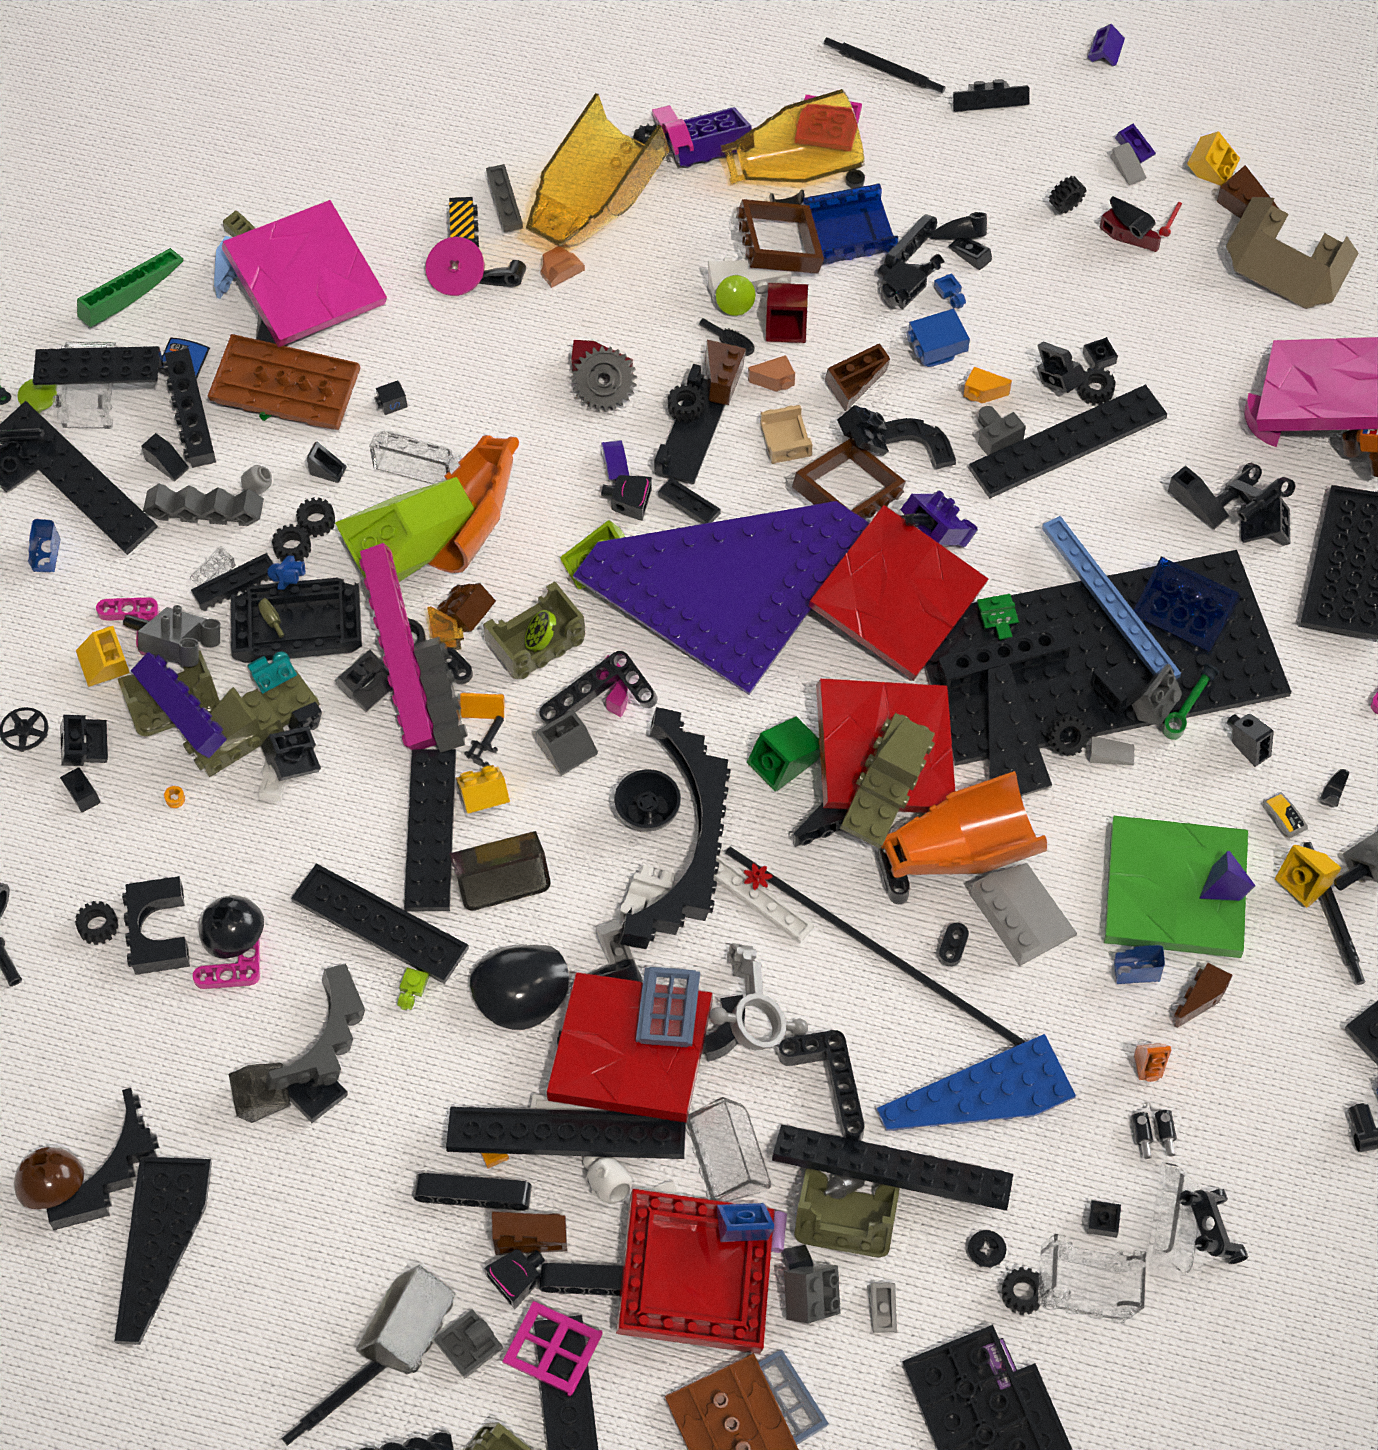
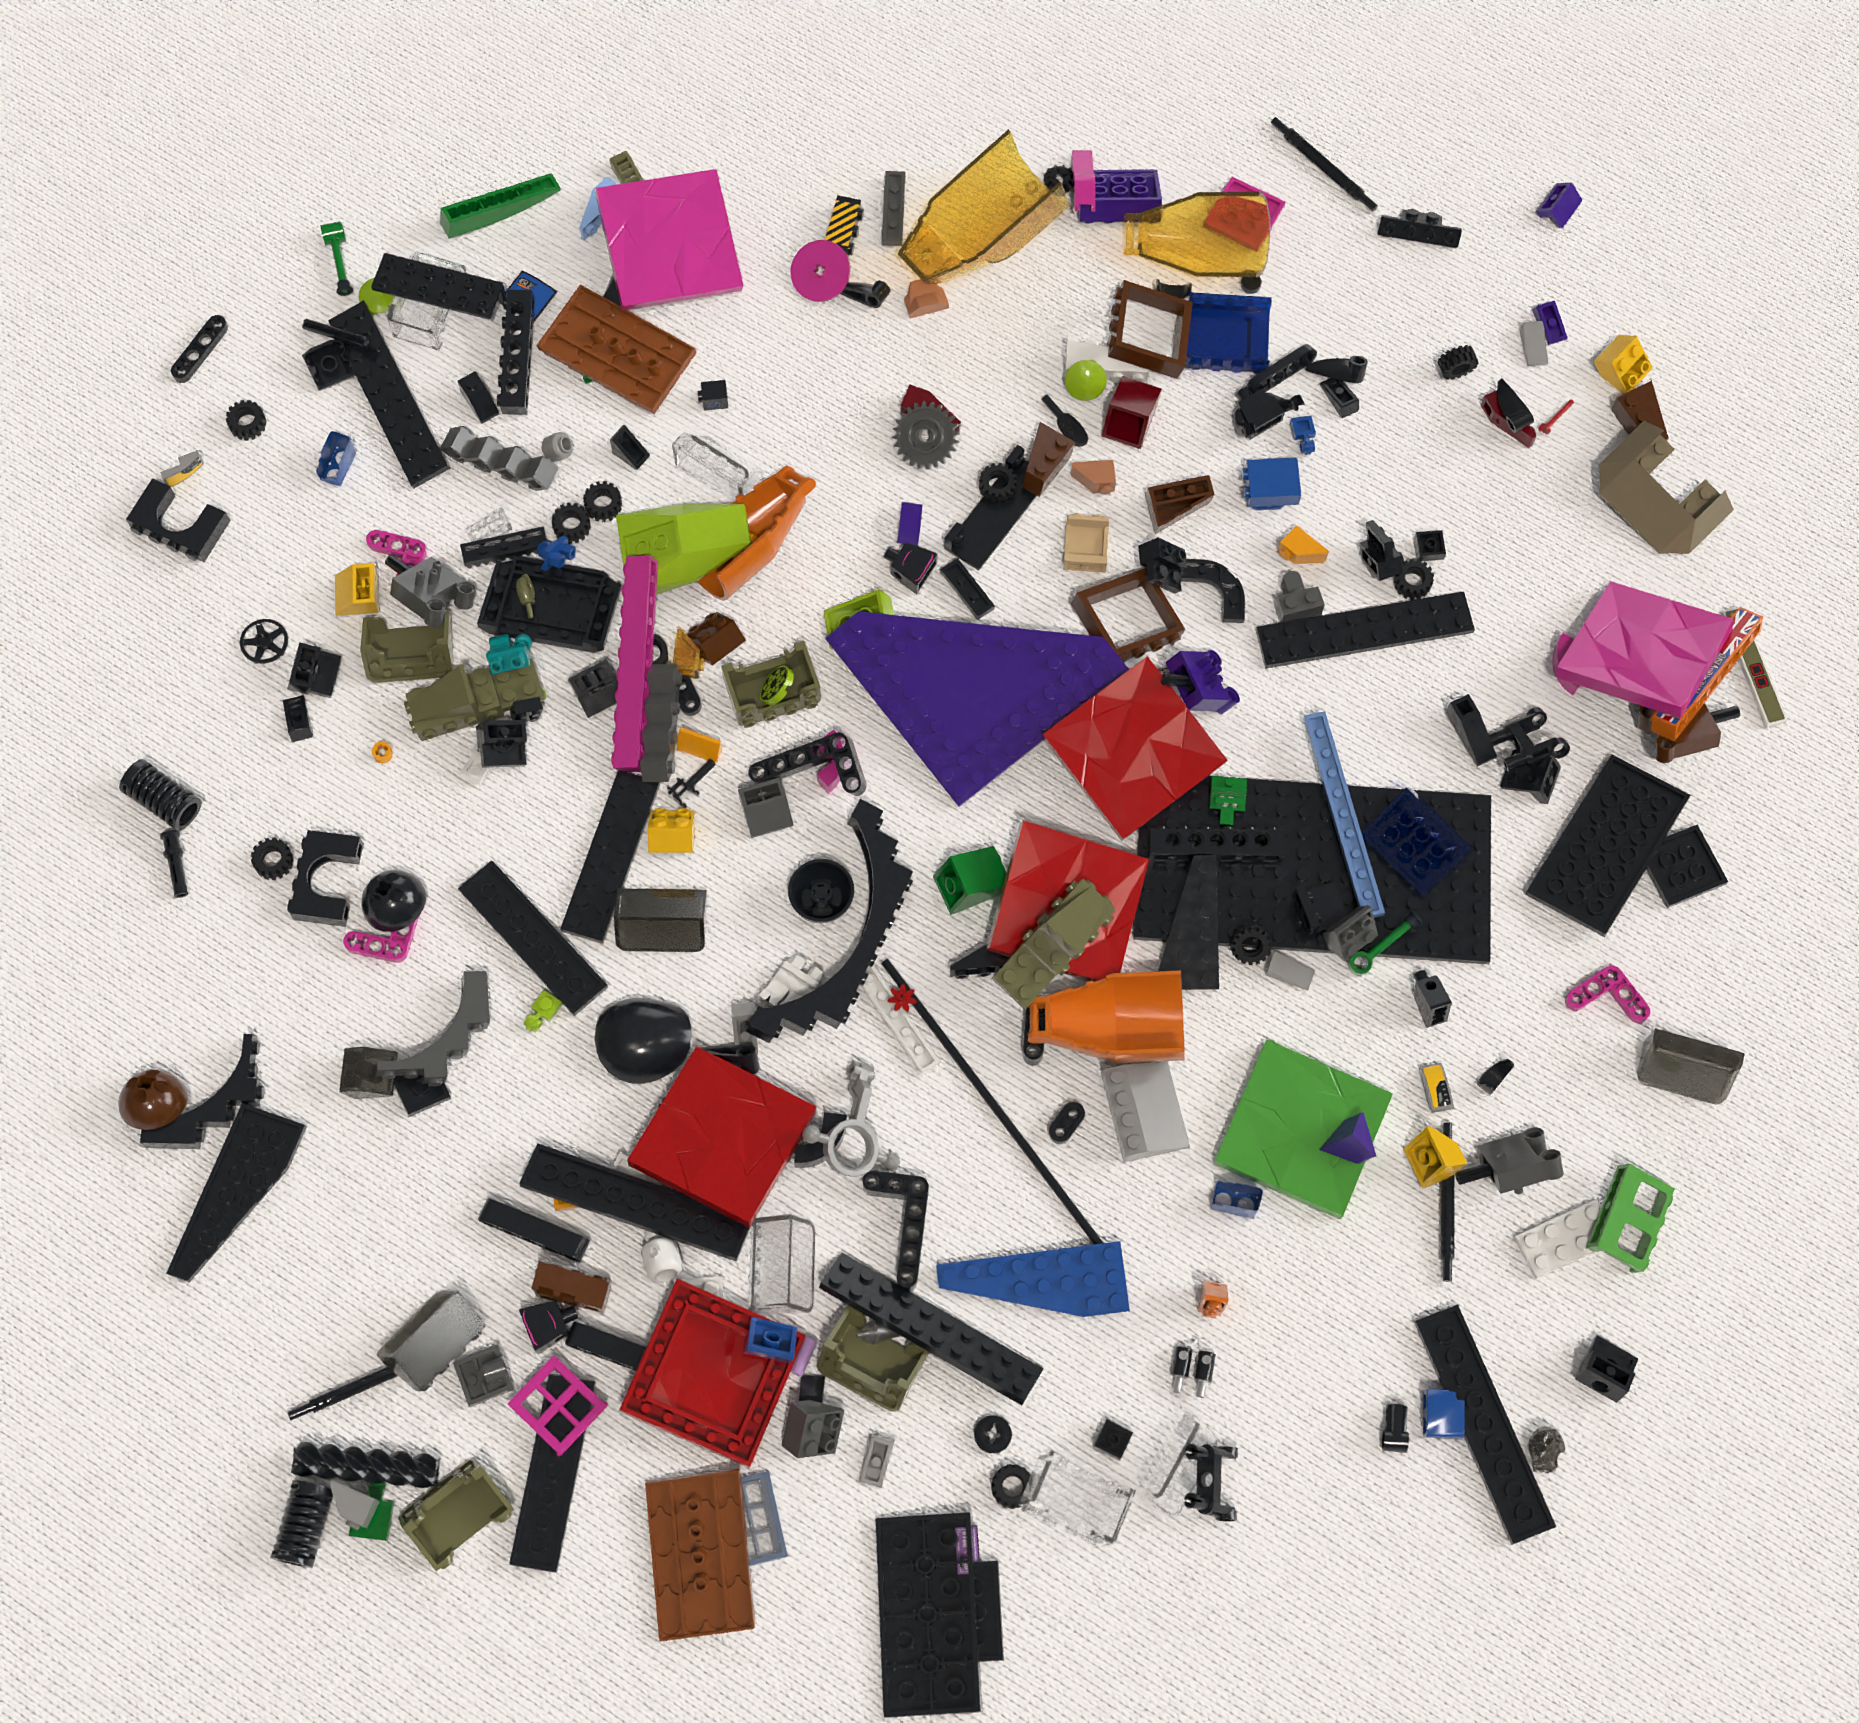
camera: 15 degrees right, 10 degrees up
(178, 704) = (408, 664): dark purple brick -> none
(668, 1007) = (769, 1109): sand blue piece -> none
(1207, 992) = (1292, 1246): reddish brown slope -> none

